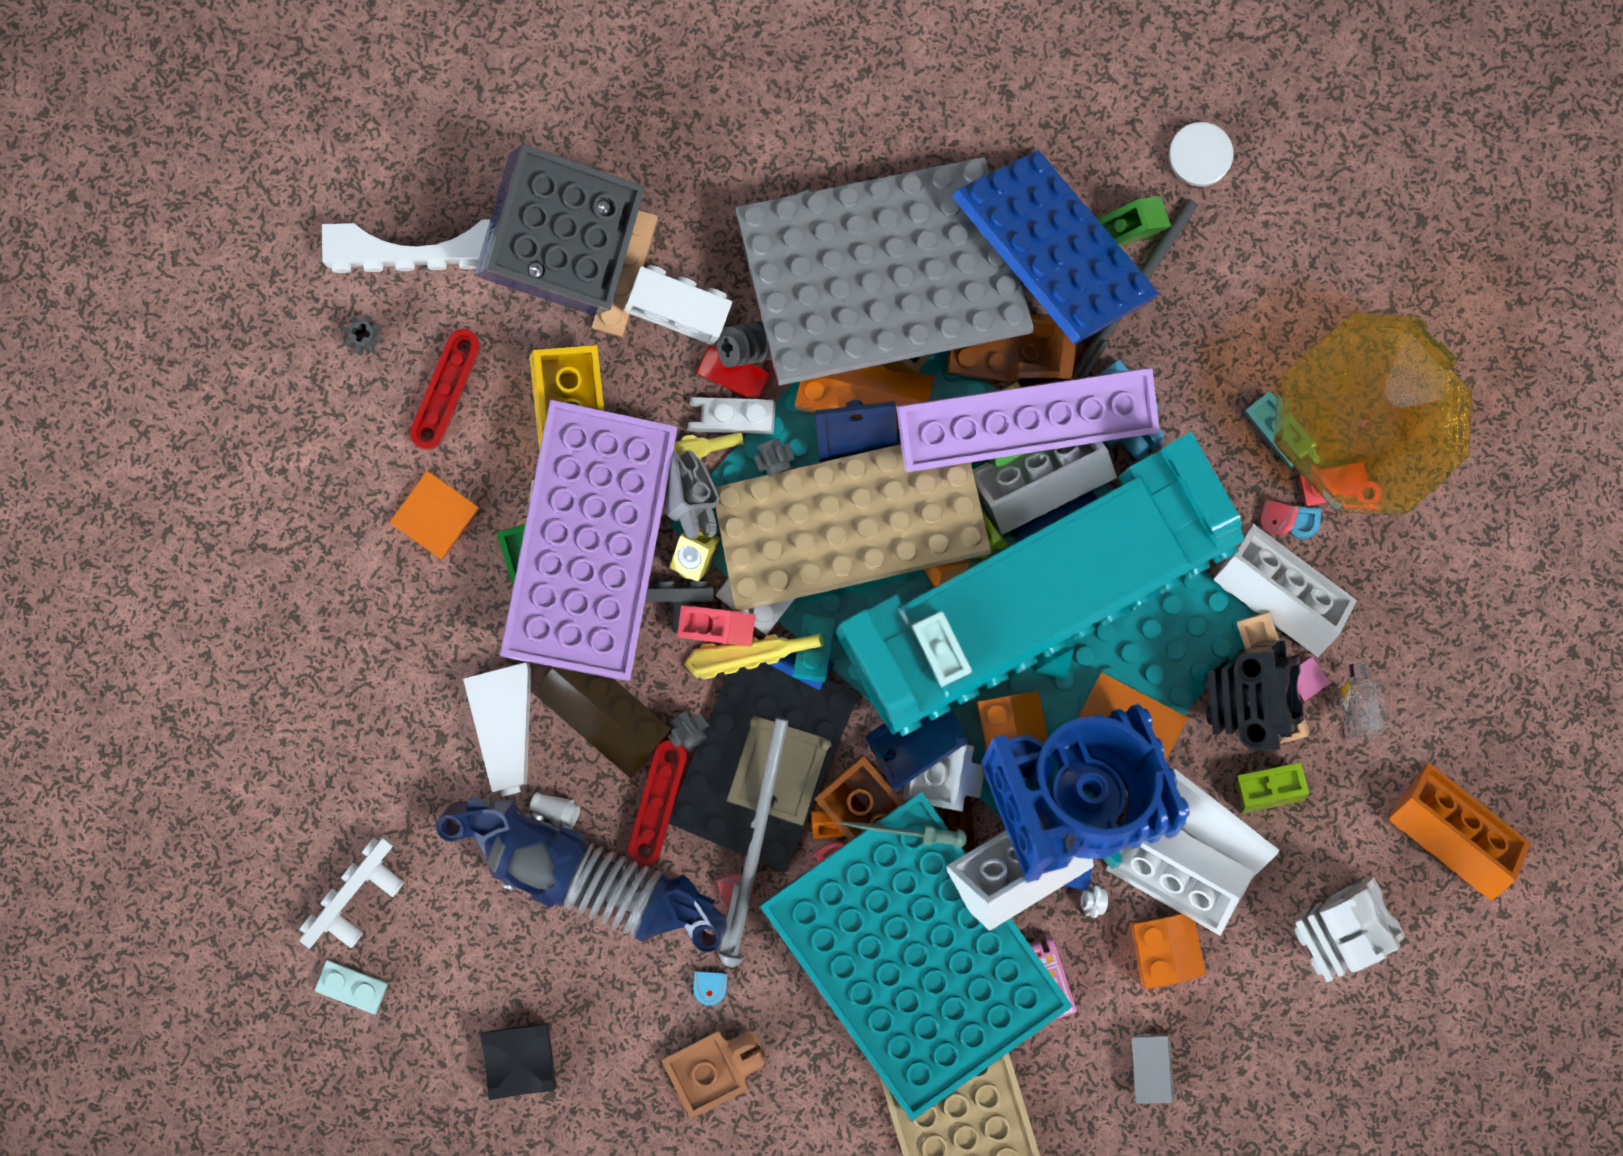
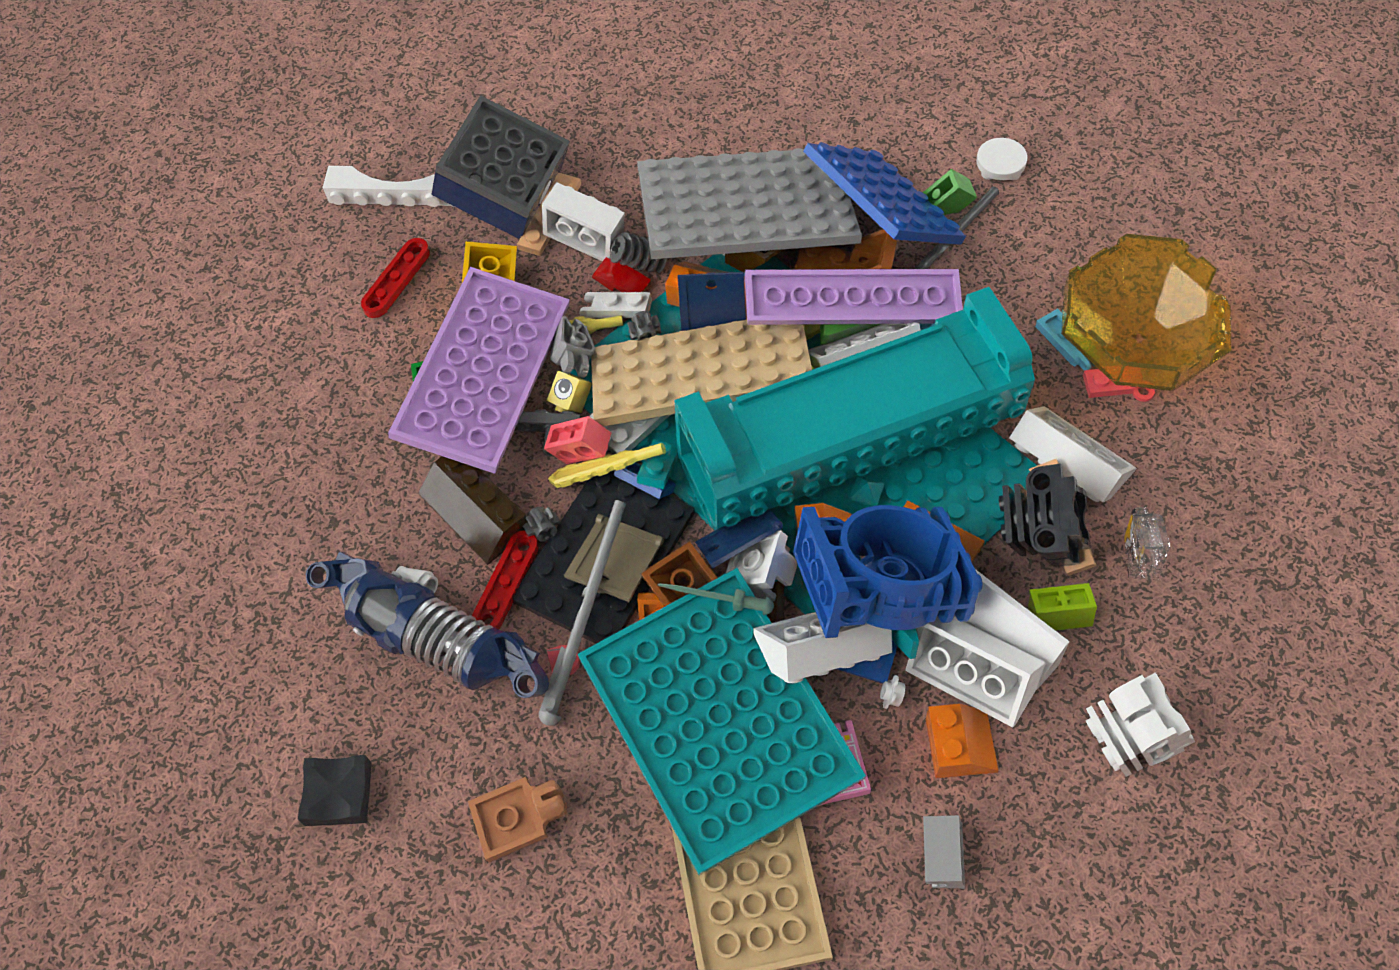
camera: 10 degrees right, 25 degrees down
(330, 917) = (209, 638): white plate -> none
(351, 987) = (203, 716): light aqua plate -> none
(360, 327) = (342, 239): dark grey gear -> none
(434, 515) = (367, 361): orange tile -> none
(501, 720) = (386, 507): white slope -> none
(710, 987) = (526, 743): medium azure tile -> none
(941, 649) = (762, 430): light aqua plate -> none
(1278, 517) = (1066, 398): coral tile -> none
(1306, 522) = (1087, 406): medium azure tile -> none
(1311, 679) = (1097, 524): bright pink tile -> none
(1460, 832) = (1242, 659): orange slope -> none

